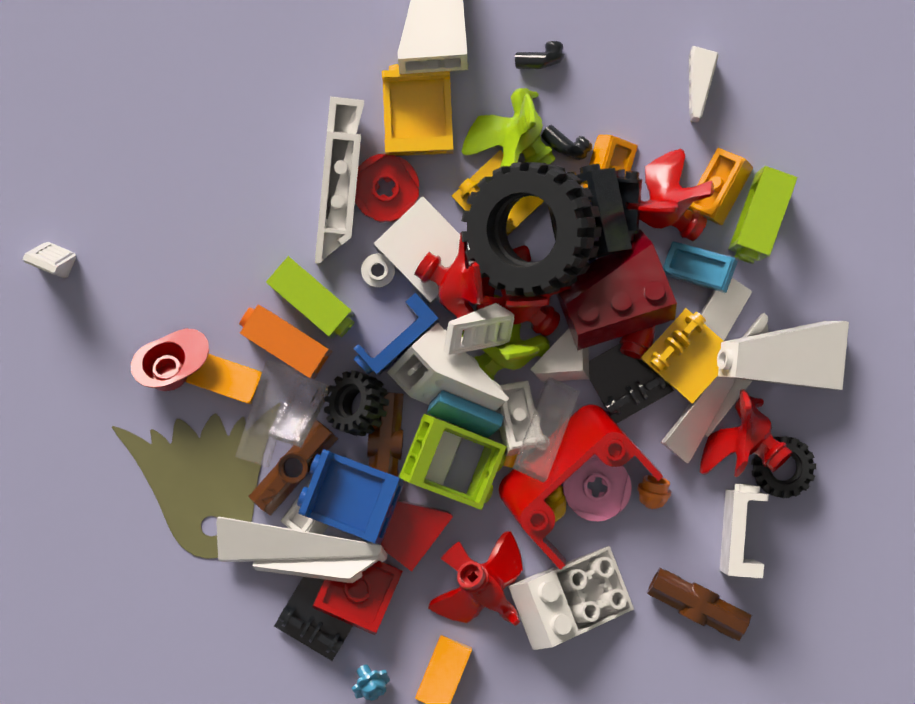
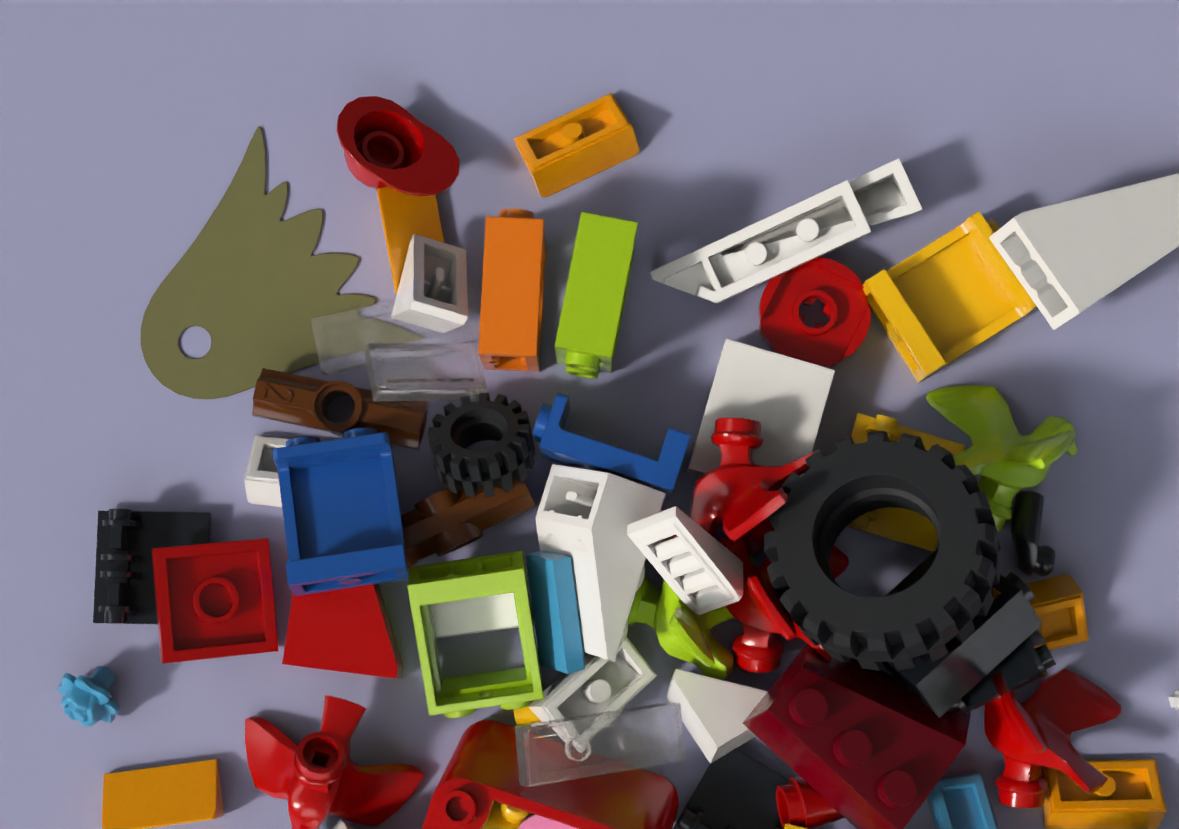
camera: 60 degrees right, 5 degrees down
(221, 260) = (577, 145): none -> light orange slope
(256, 381) = (433, 286): none -> white slope
(295, 551) = (219, 479): white wedge -> none
(372, 280) = (677, 381): white plate -> none
(540, 60) = (1127, 429): black arm -> none

